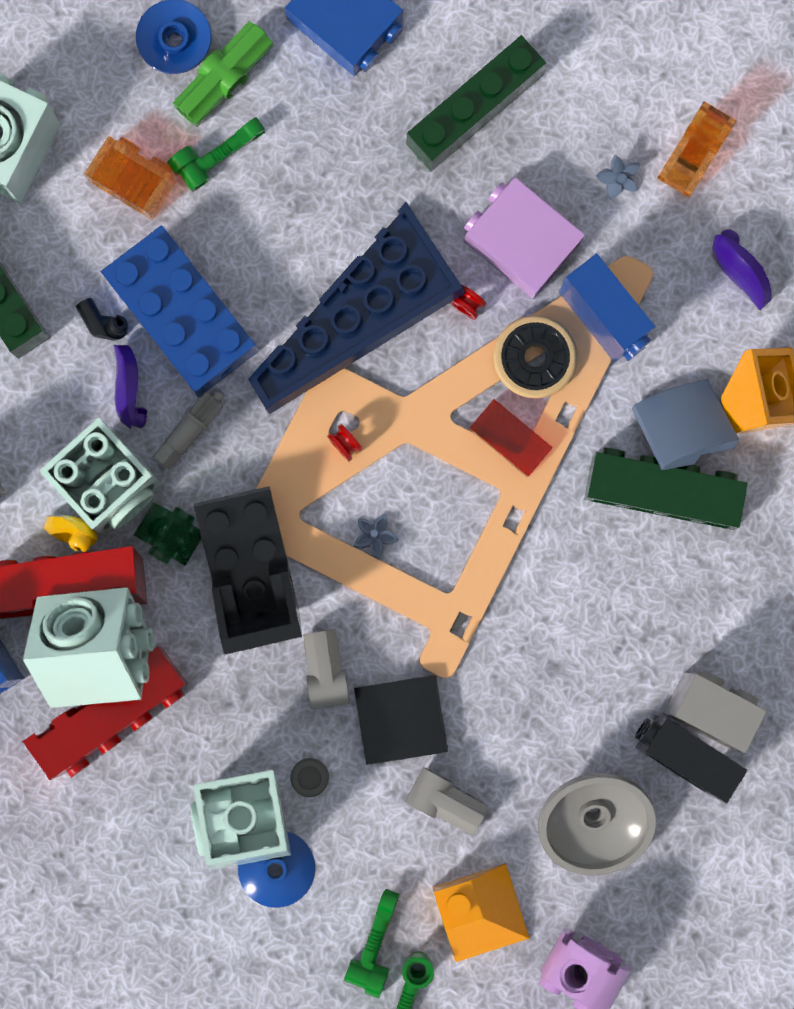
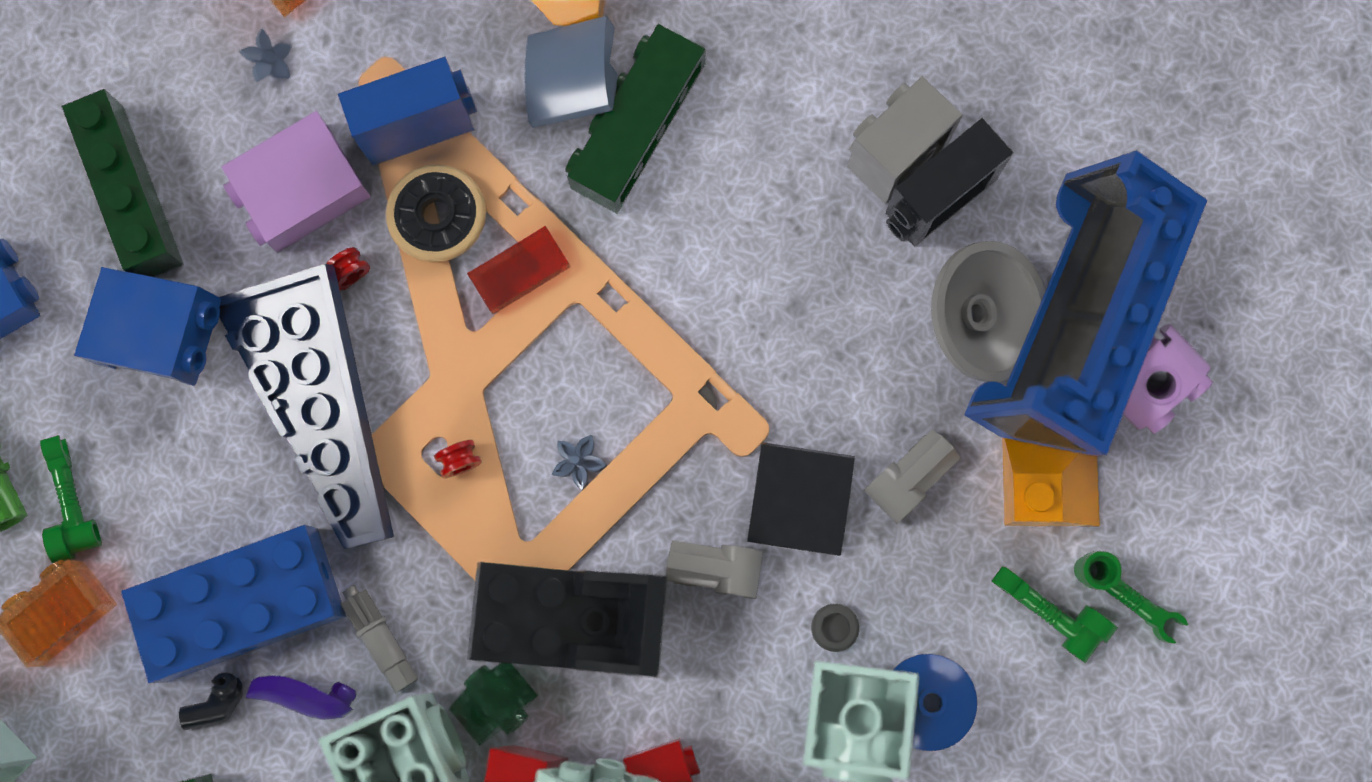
camera: 60 degrees left, 5 degrees down
(370, 167) = (148, 325): none -> blue panel
(624, 908) = (1098, 309): none -> blue windscreen

